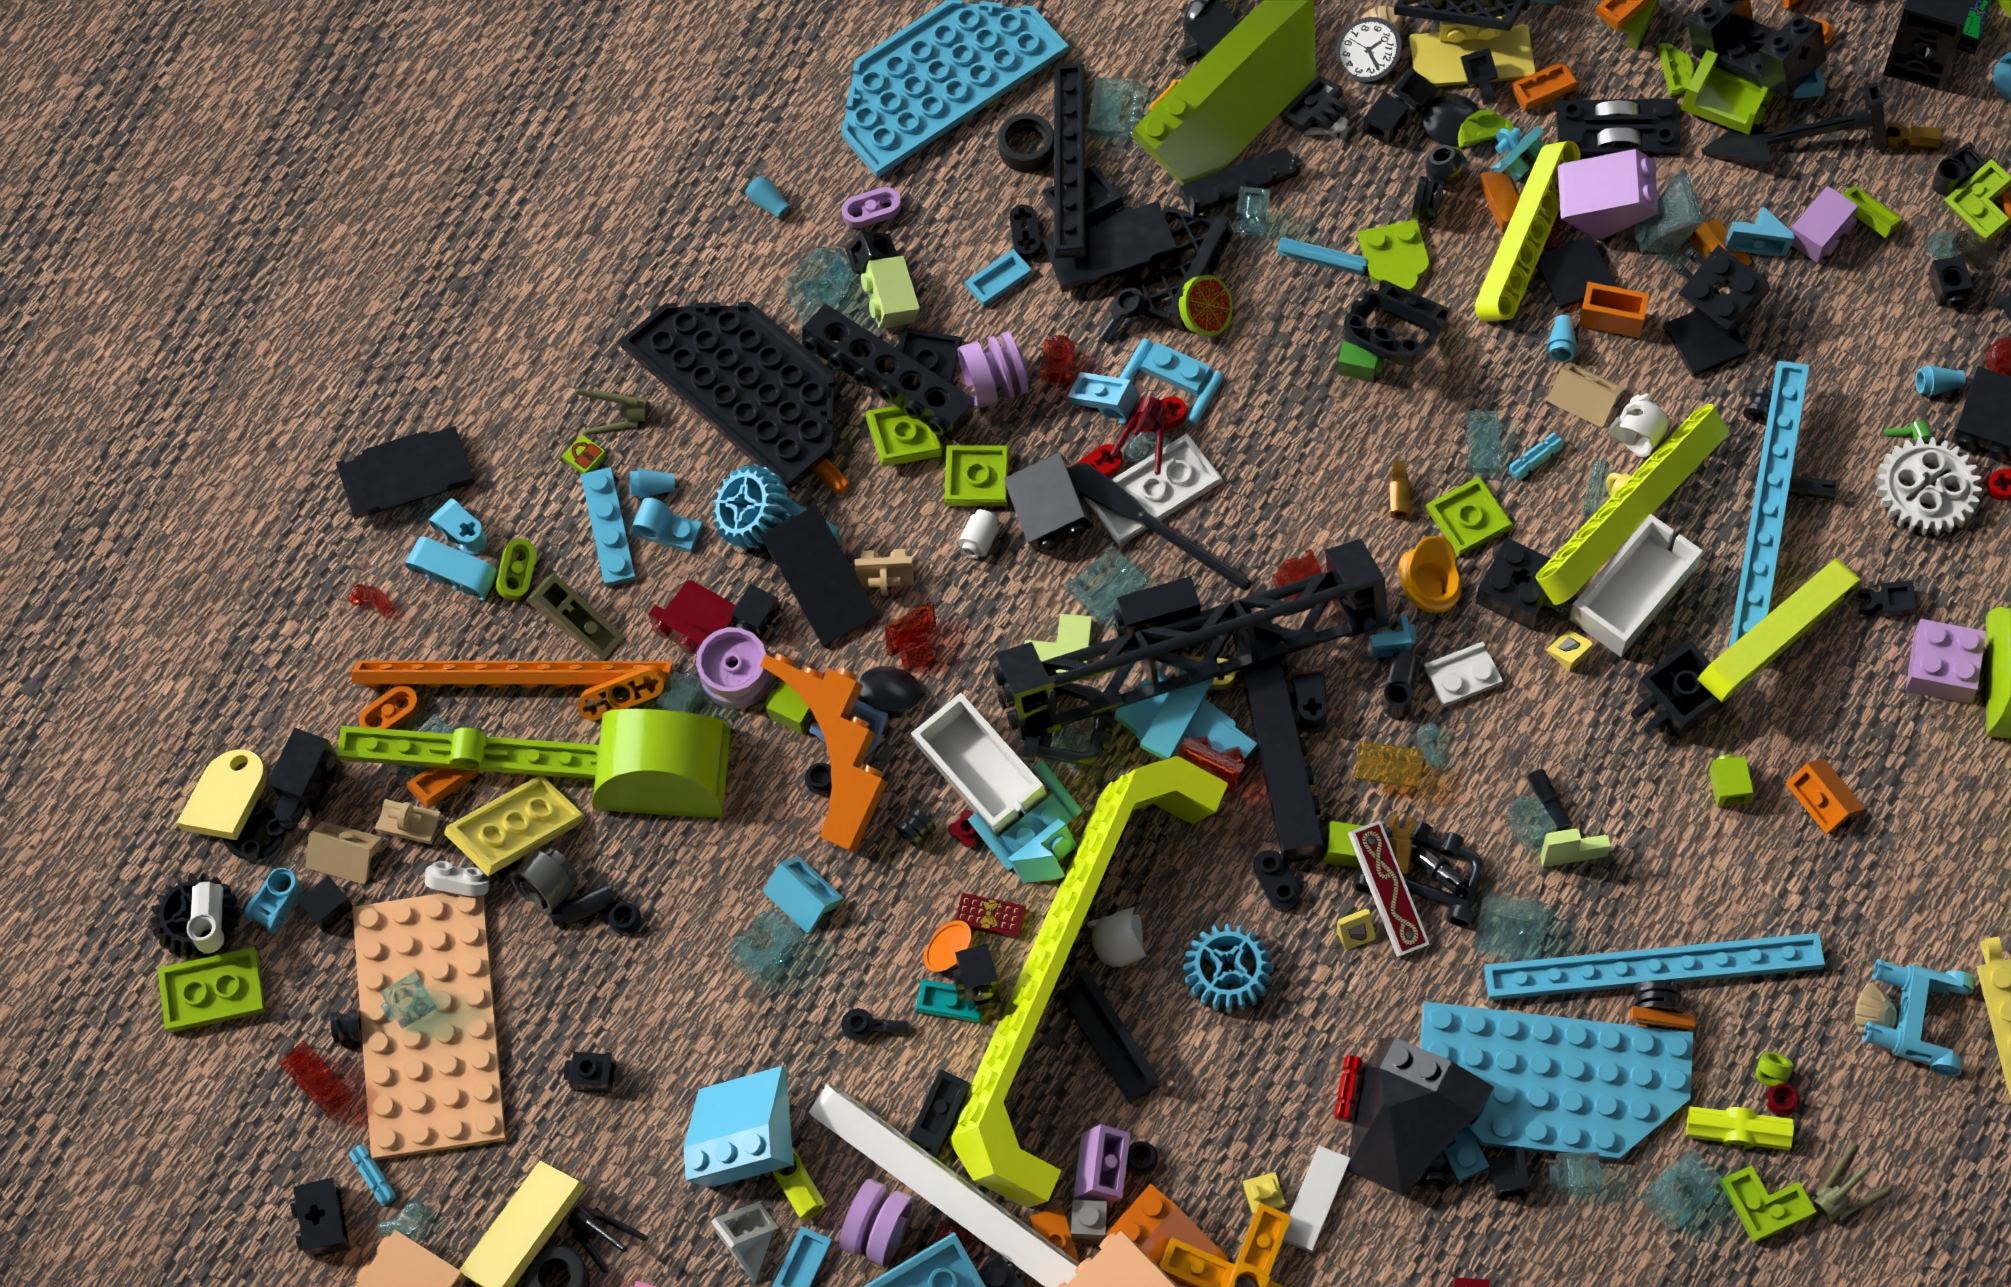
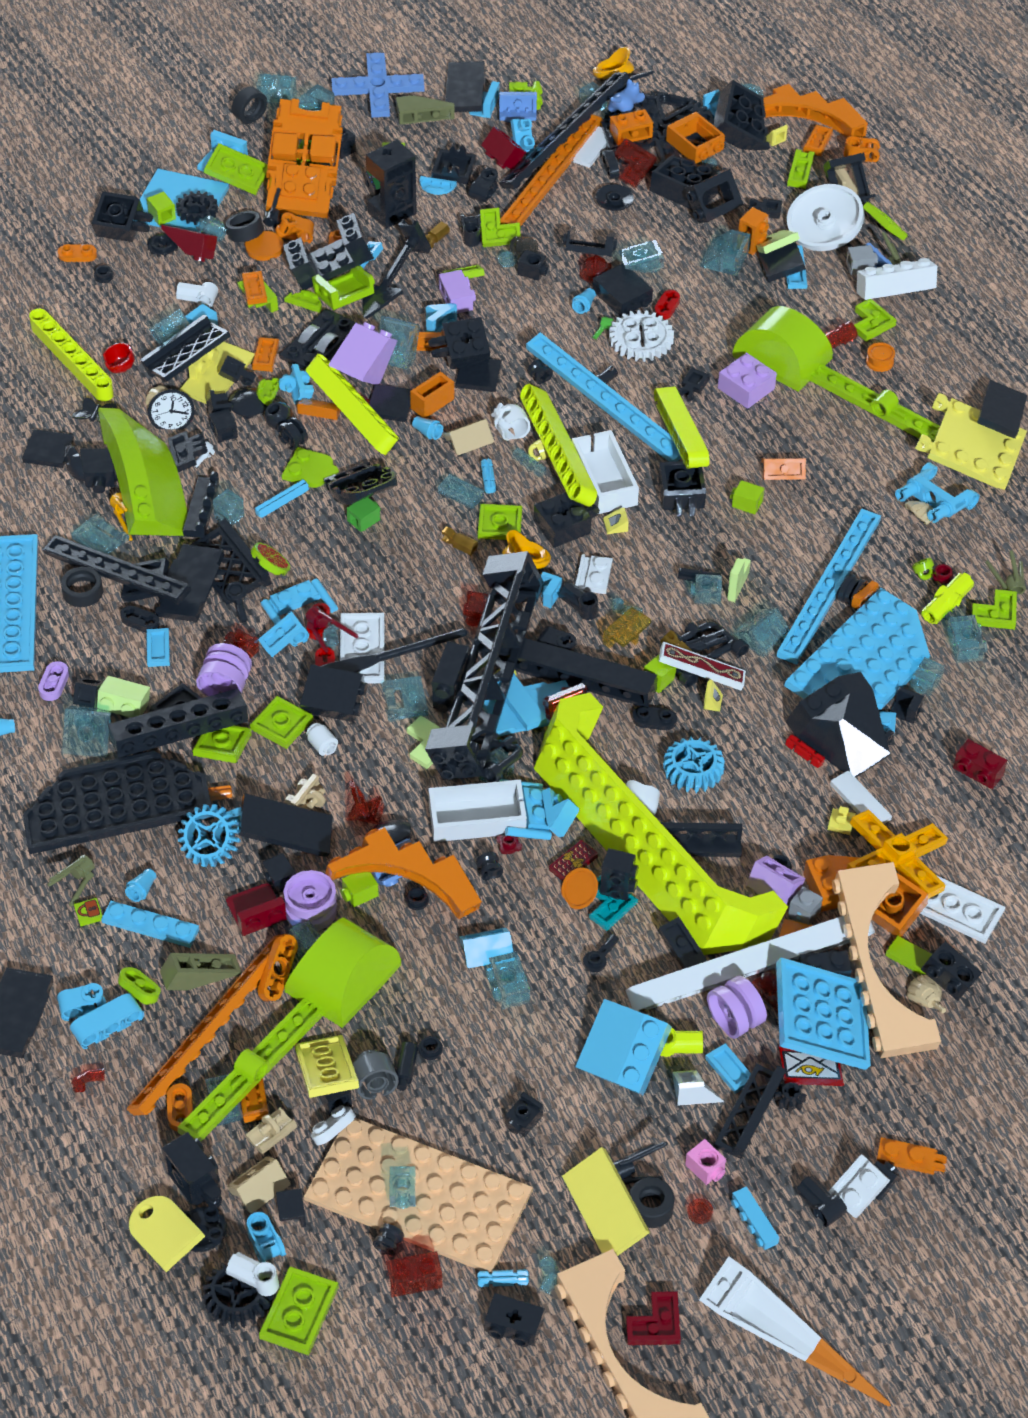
camera: 65 degrees left, 15 degrees down
(659, 525) = (173, 895): medium azure plate -> none

